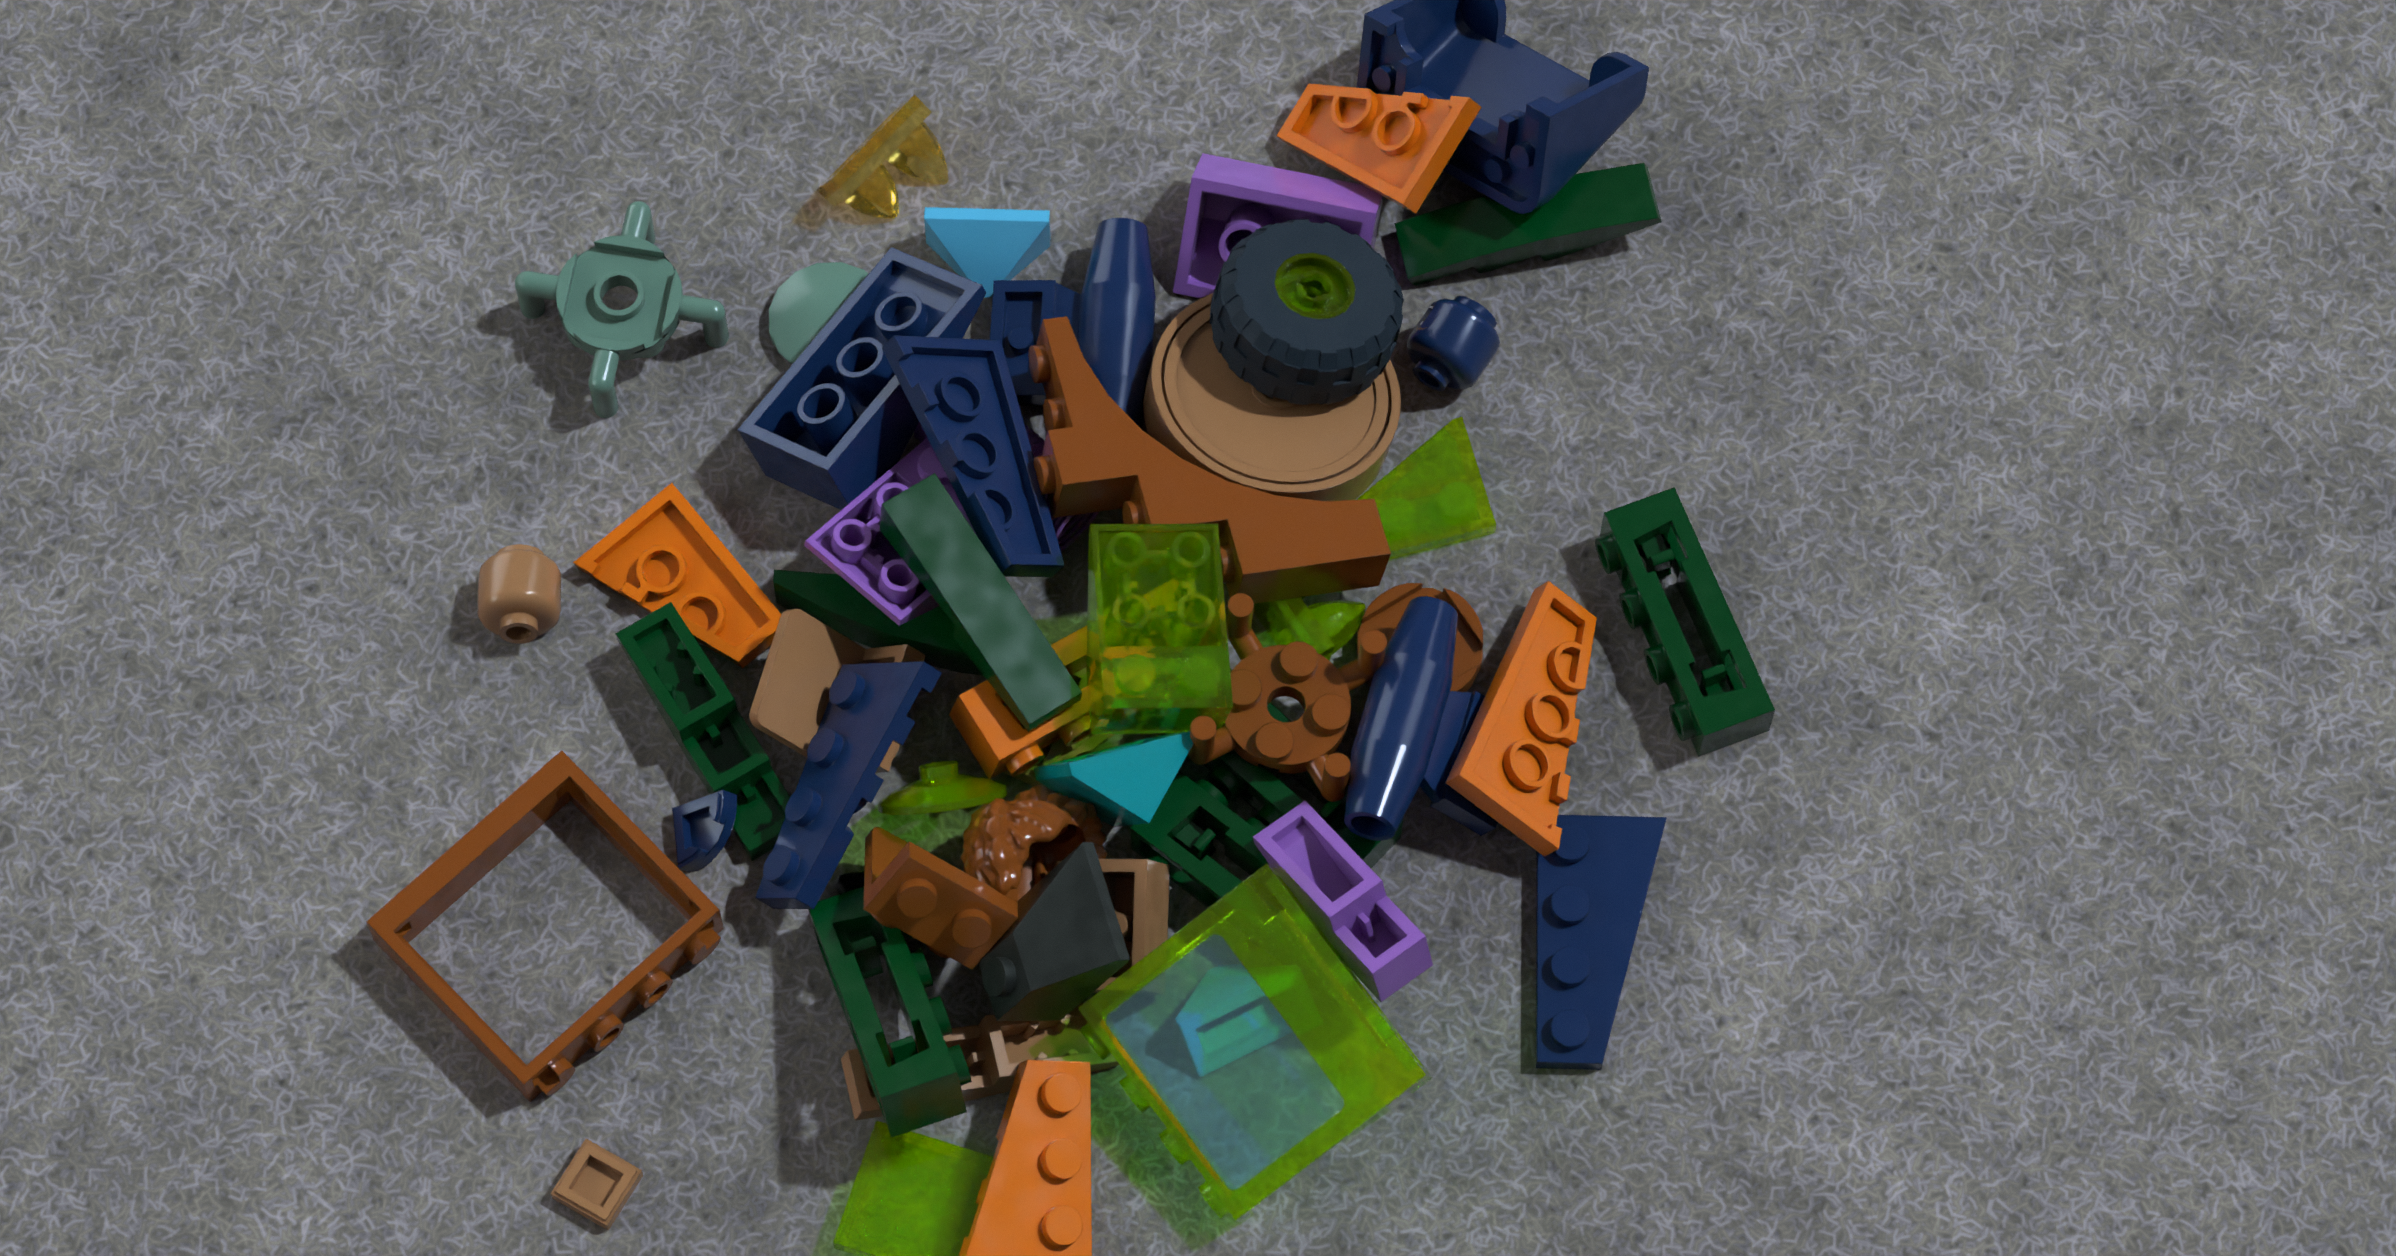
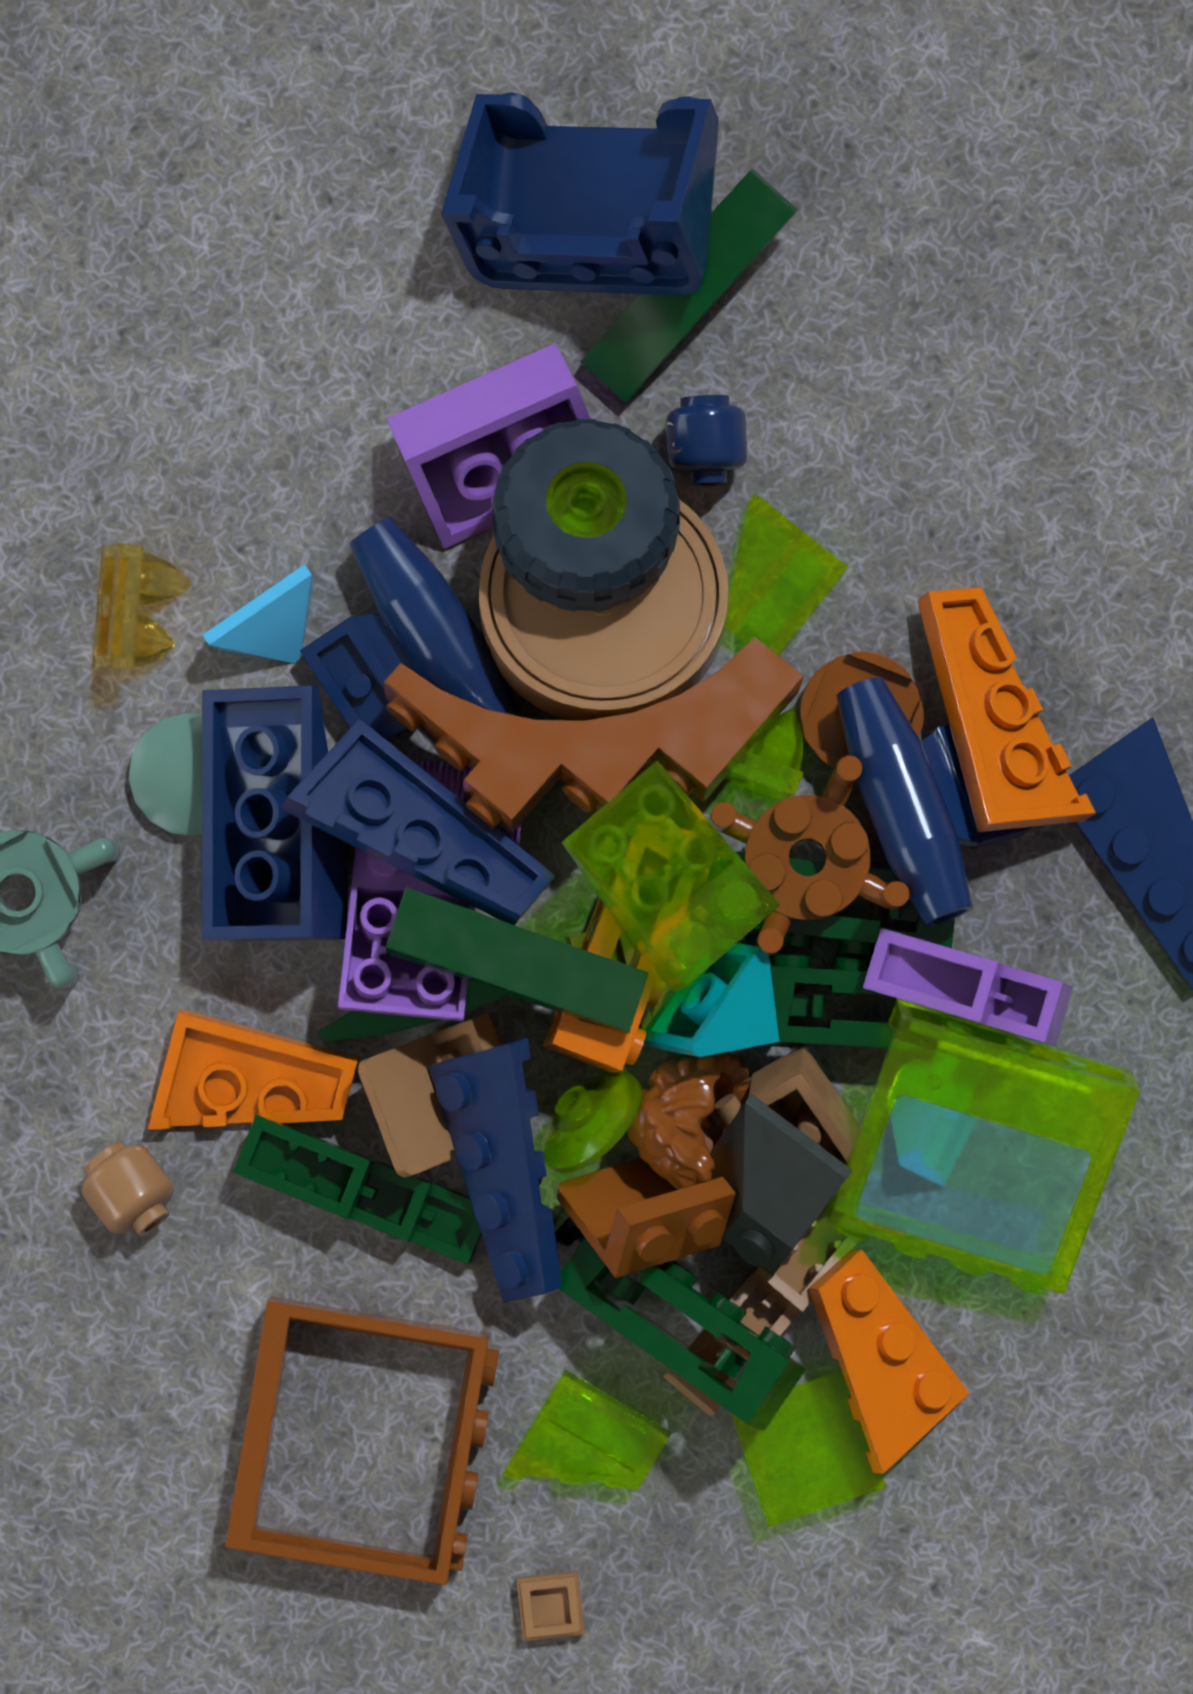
camera: 35 degrees left, 20 degrees up
(703, 828) = (417, 1272): dark blue tile -> none
(736, 1064) = (587, 1439): none -> clear neon green wing
(1380, 139) = (524, 309): orange wing -> none
(1723, 714) = (1063, 582): dark green brick -> none

